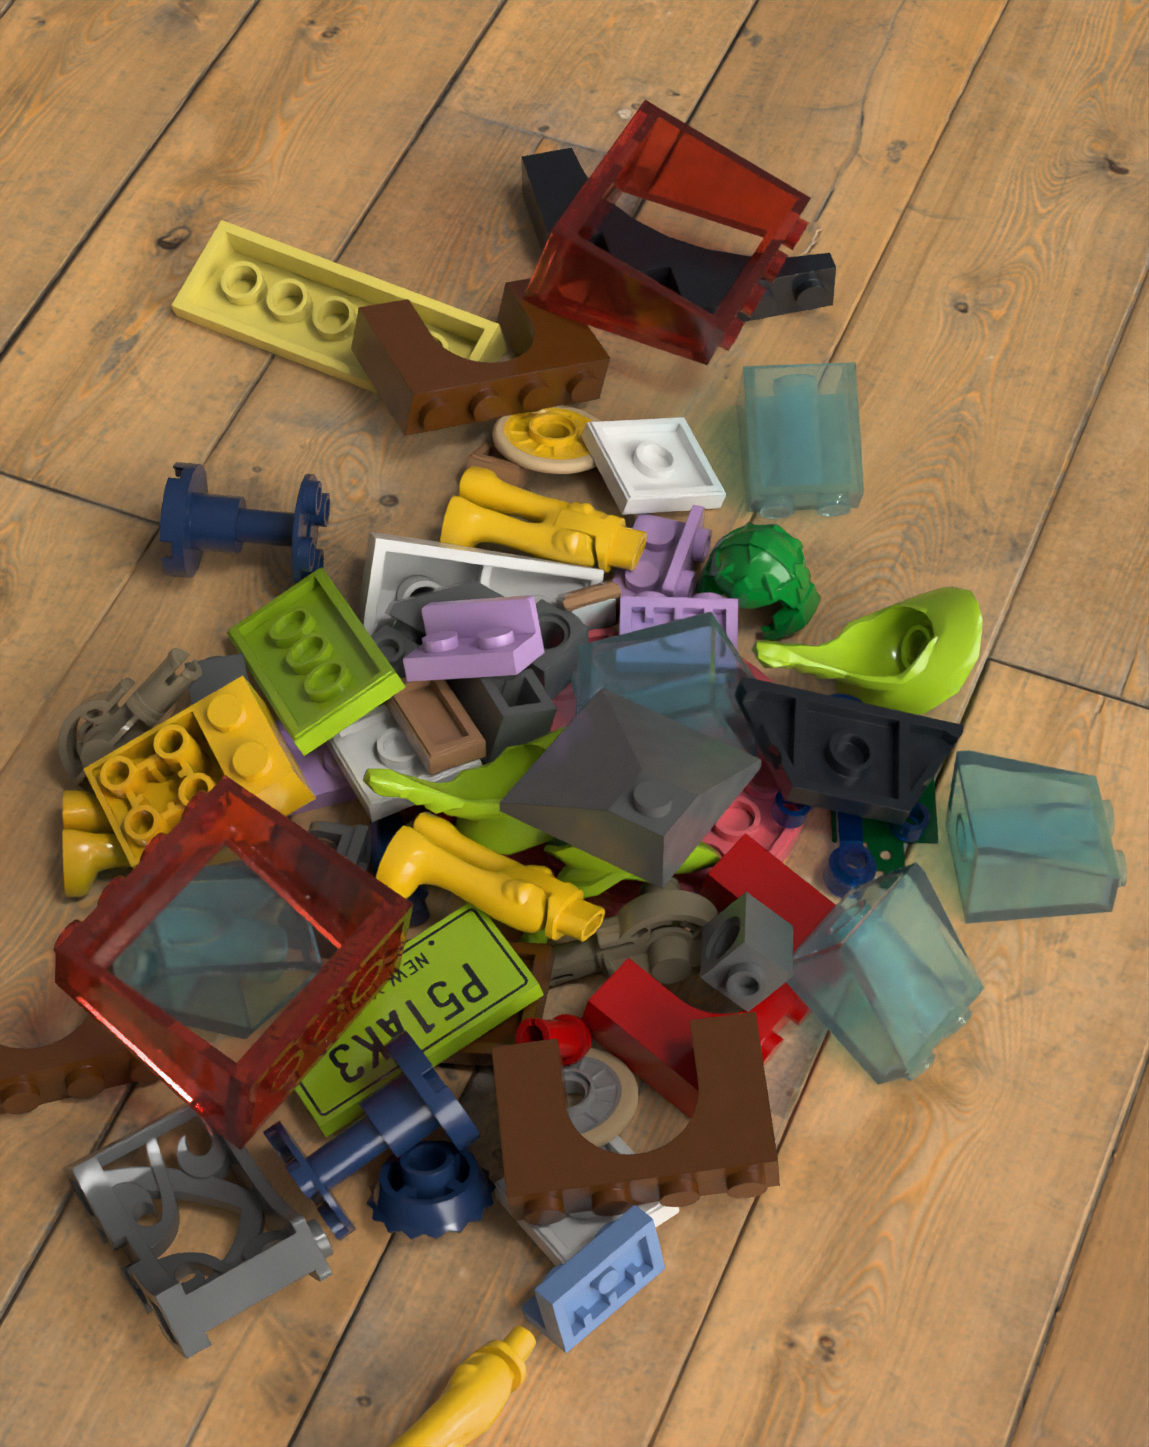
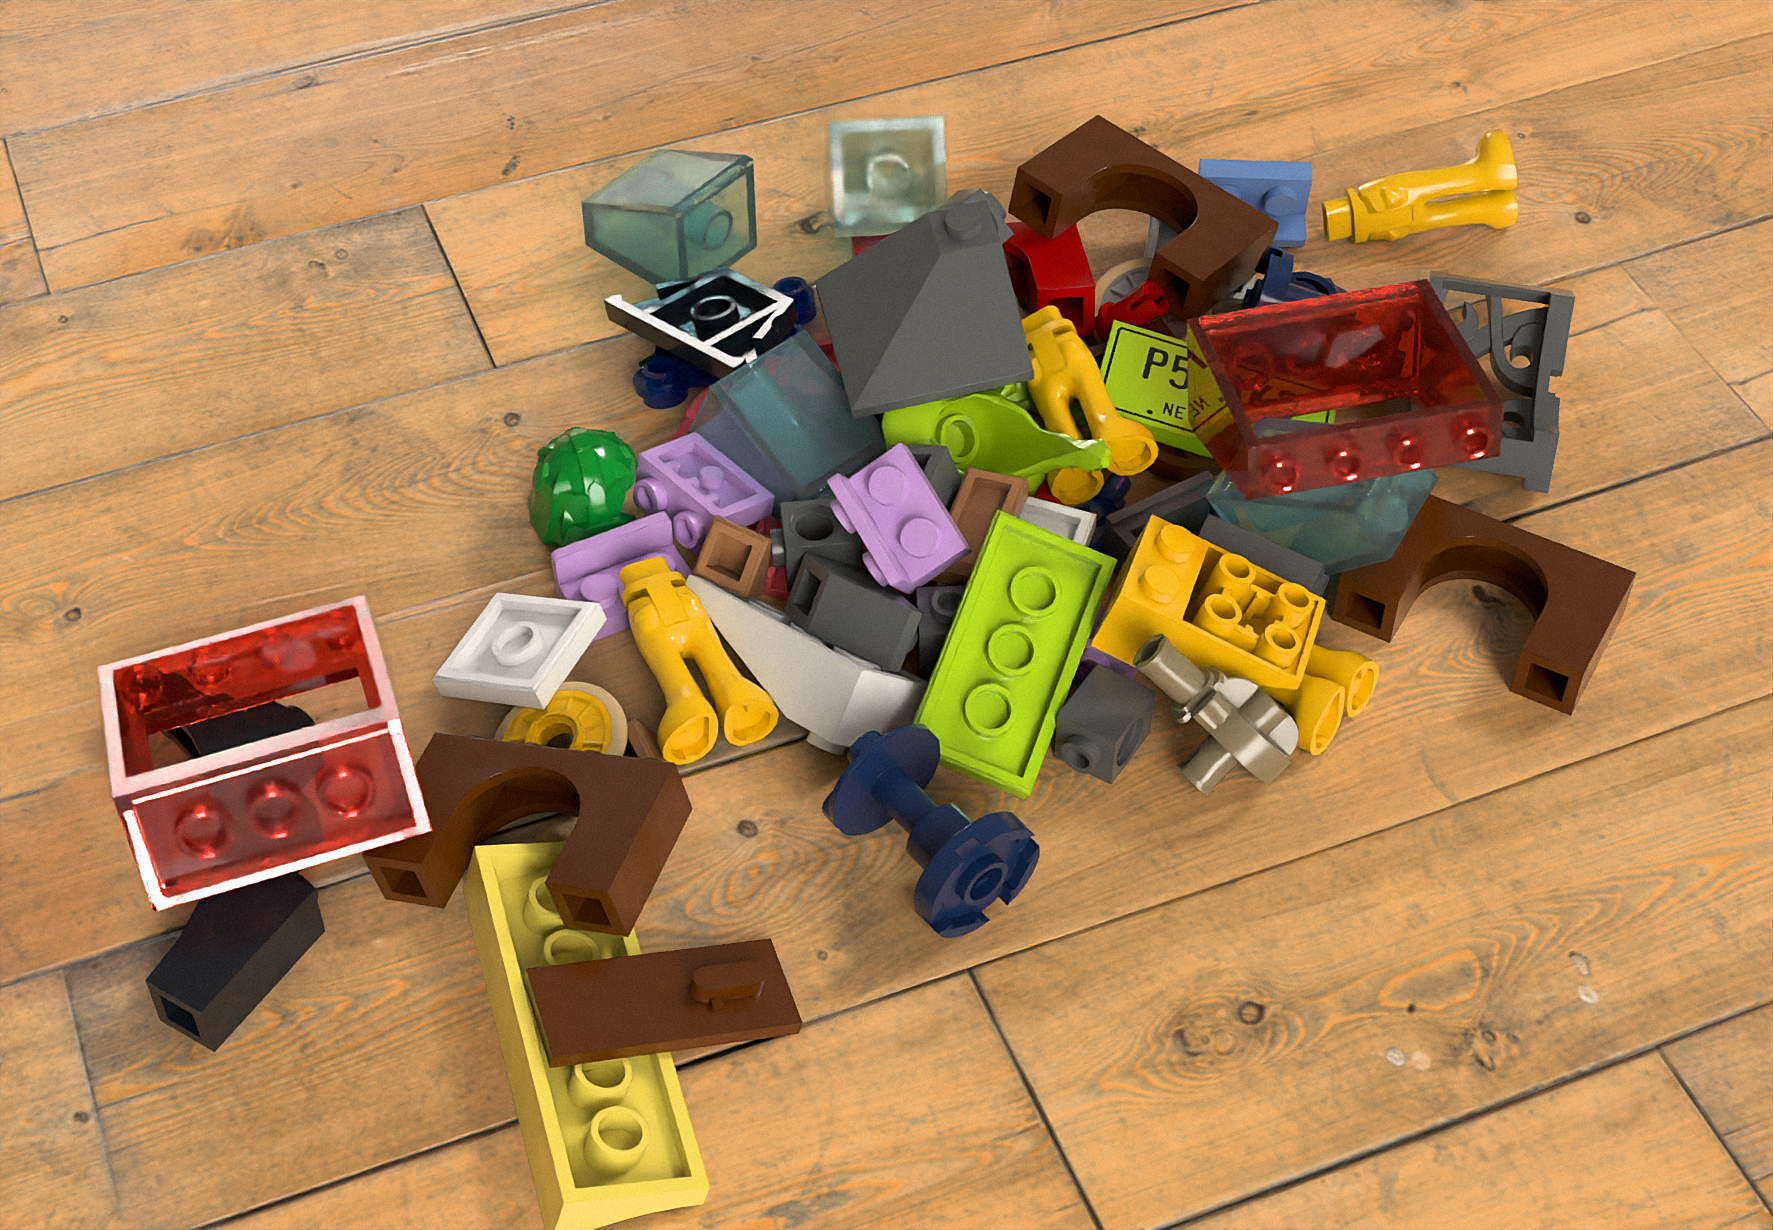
camera: 135 degrees left, 5 degrees down
(298, 354) = (661, 1002): none -> reddish brown piece
(800, 439) = (401, 547): clear light blue slope -> none
(897, 656) = (566, 370): lime hat -> none

